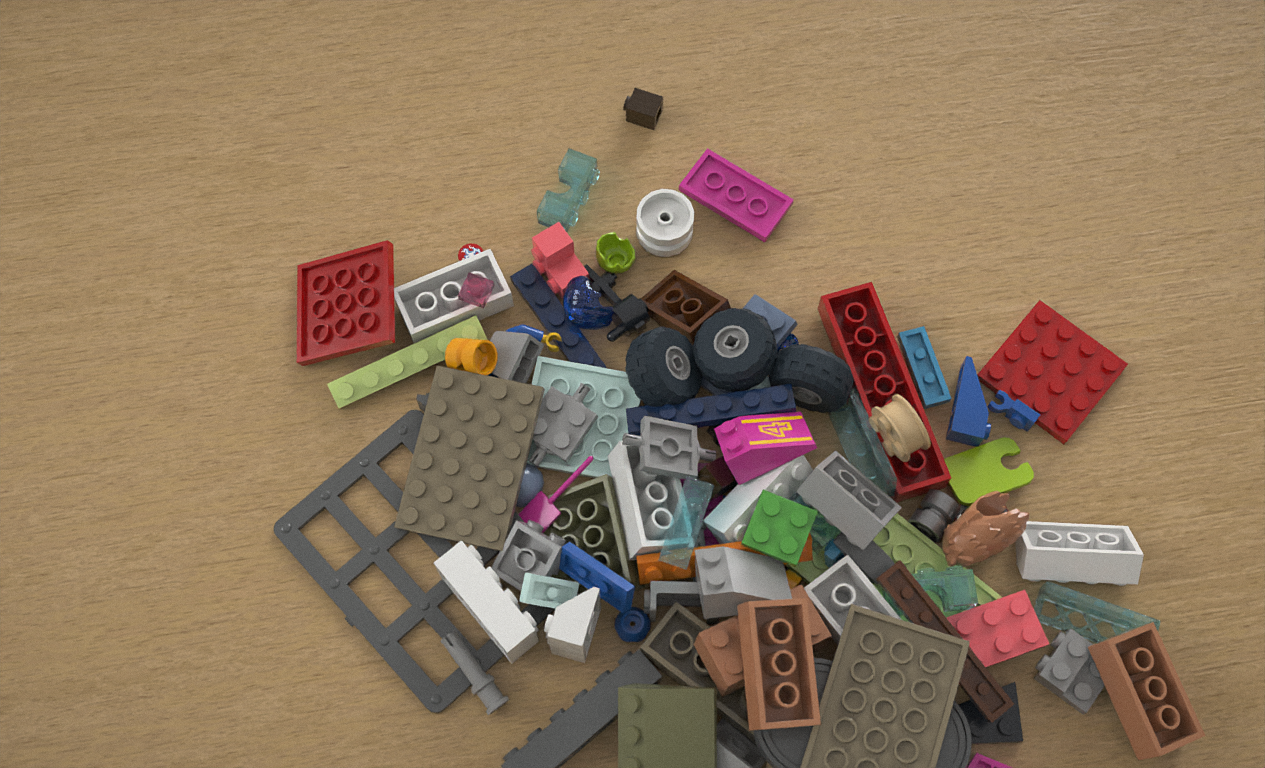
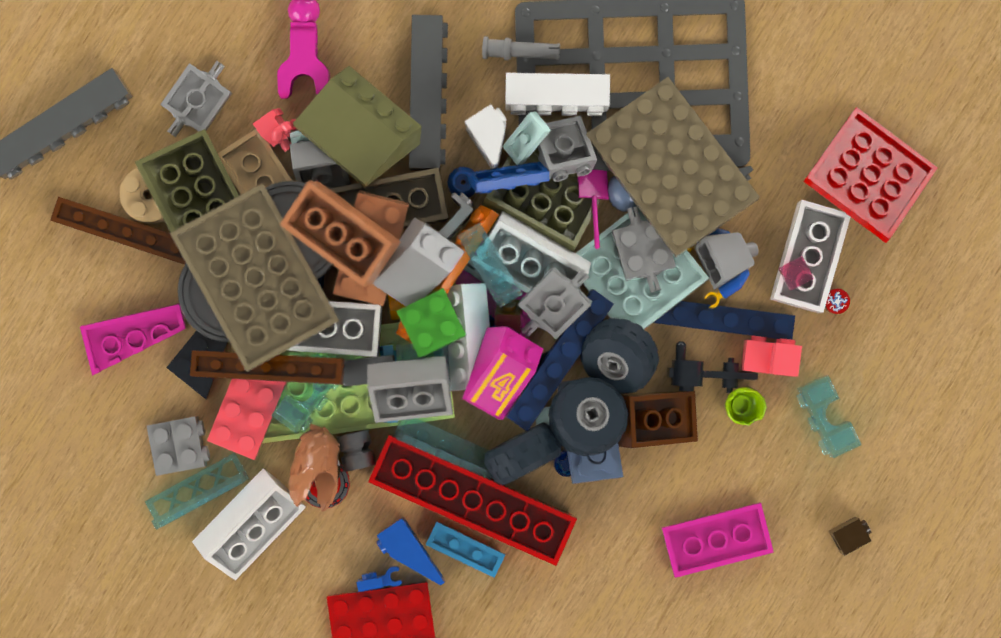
camera: 135 degrees right, 20 degrees up
(401, 363) = (788, 185): yellowish green plate -> none
(471, 355) = (747, 227): light orange wheel -> none
(583, 306) = (719, 341): clear blue piece -> none
(664, 222) = (722, 460): white wheel -> none
(900, 428) = (428, 470): tan wheel -> none
(981, 471) = (356, 512): lime piece -> none
(1146, 692) = (123, 472): nougat brick -> none

